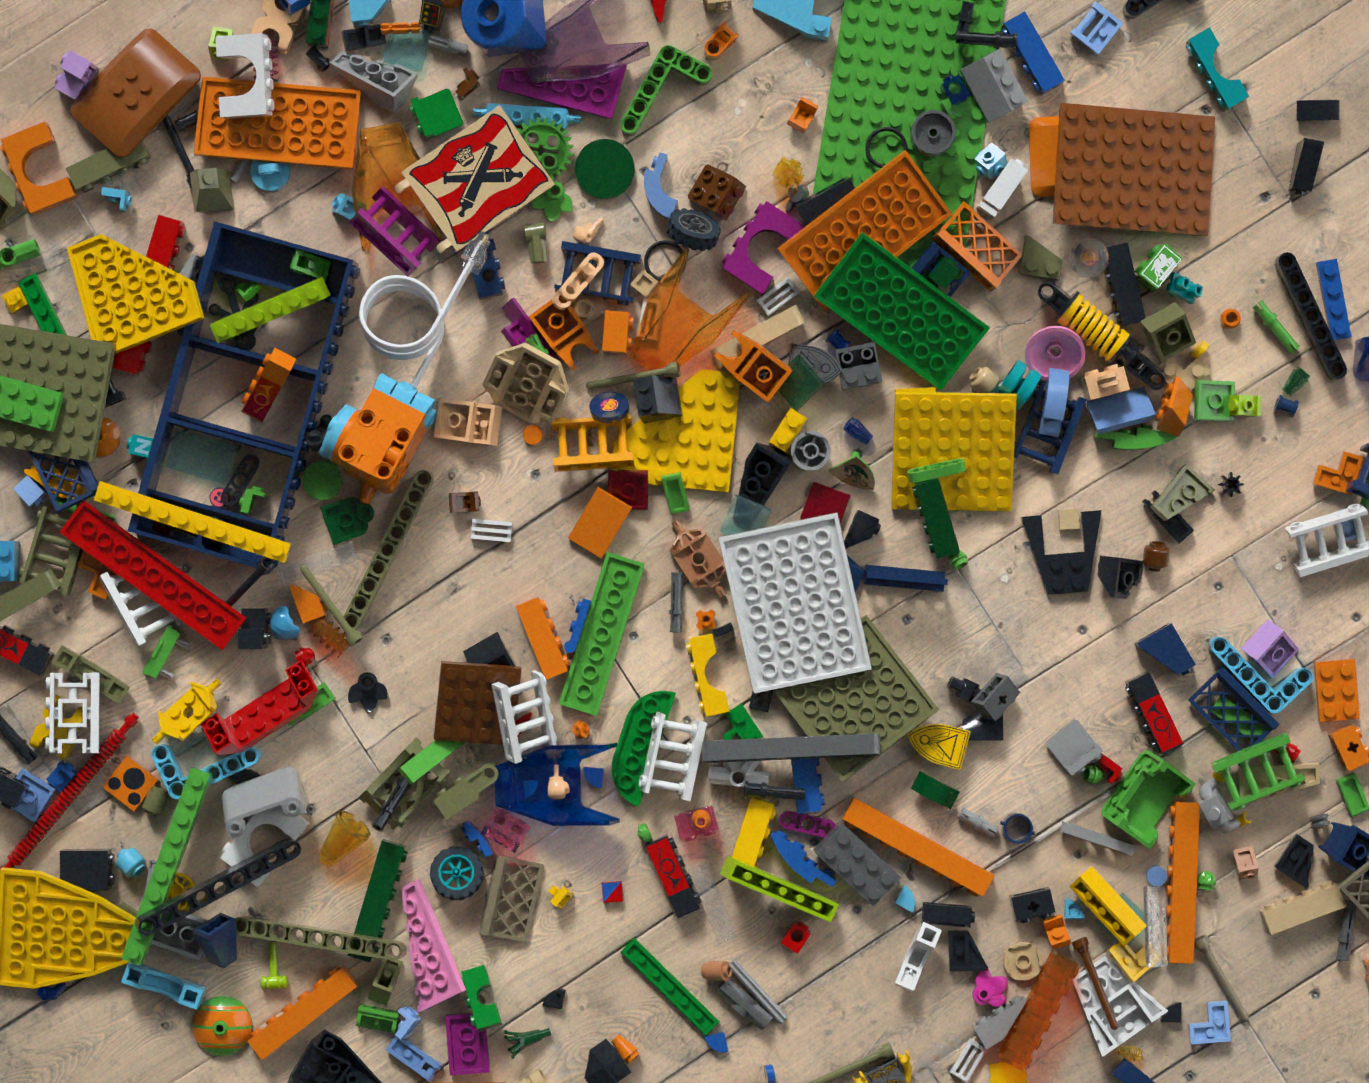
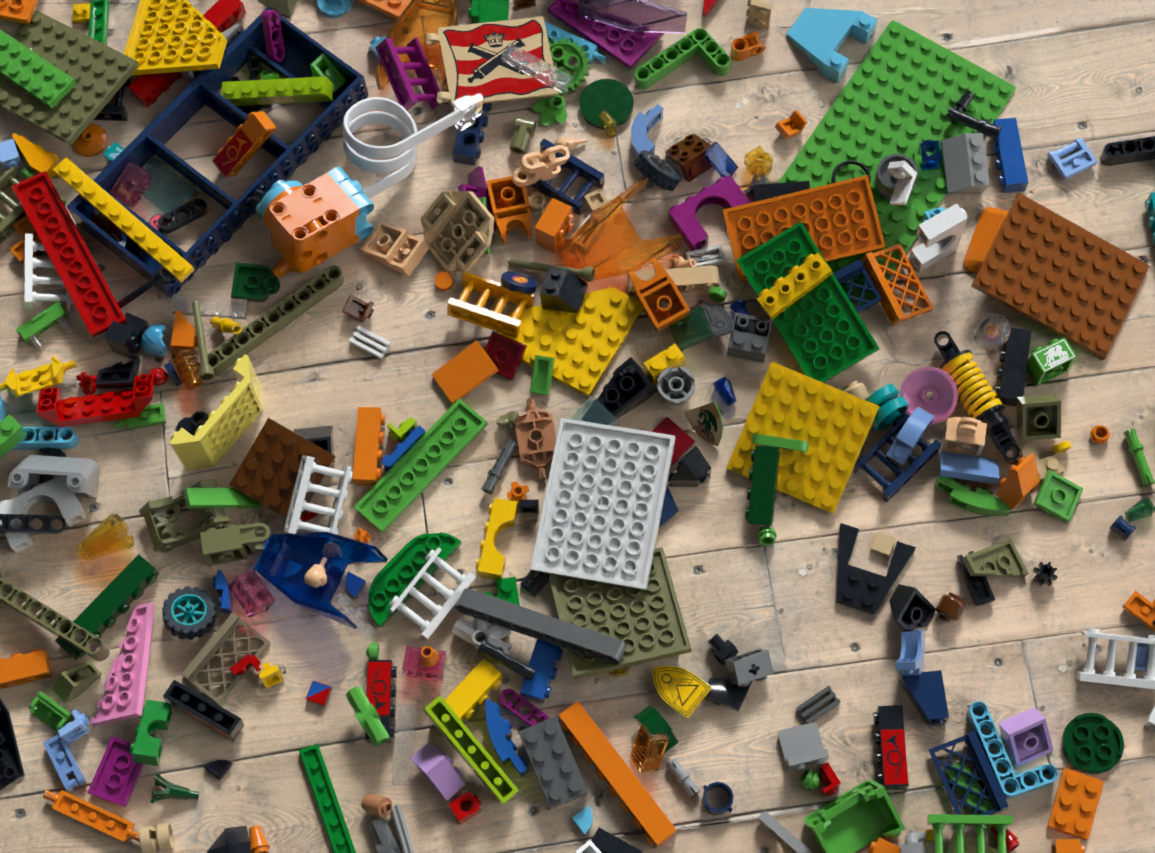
camera: 25 degrees right, 20 degrees down
(84, 472) = (60, 150): dark blue fence -> none
(173, 472) = (131, 184): none -> clear pink brick
(240, 257) = (277, 51): none -> magenta beam
(240, 693) = (87, 382): none -> red plant
(246, 502) = (182, 232): bright green bracket -> none
(266, 672) = (118, 375): none -> black wing
(318, 648) = (173, 374): none -> dark blue tile
(322, 480) = (250, 245): bright green tile -> none
(345, 578) = (226, 325): none -> yellow pin
(388, 810) = (157, 526): black pin -> none
(400, 631) = (224, 424): none -> light yellow slope
(517, 957) = (203, 710): none -> black brick
(521, 168) = (537, 68): none -> clear plate
(532, 897) = (241, 666): none -> red bracket
(570, 605) = (404, 428): none -> lime bracket
(612, 807) = (355, 616): none -> clear plate
(620, 193) = (610, 124): none -> clear yellow arm
(649, 251) = (625, 178): black tyre -> none
(662, 551) = (507, 419): none -> olive plant
(671, 899) = (367, 716): none -> bright green piece
(749, 188) = (720, 160): none -> clear blue tile
(756, 916) = (438, 769): none -> lavender brick
(758, 315) = (678, 262): none -> light nougat arm
(807, 332) = (717, 294): none -> bright green tile
(883, 303) = (794, 286): none -> yellow brick
(905, 578) = (711, 529): dark blue fence -> none
(937, 817) = (648, 750): none -> clear orange panel
(944, 272) = (858, 286): dark green brick -> none
(947, 148) = (906, 177): none -> white bracket
(1039, 261) = (946, 318): olive wing -> none
(1077, 706) = (832, 695): none -> dark grey tile
(1139, 619) = (912, 653): none -> medium blue arch
(1183, 288) = (1065, 388): teal hips -> none
(1244, 405) = (1084, 510): lime brick -> none
(1331, 627) = (1092, 743): none -> dark green tile

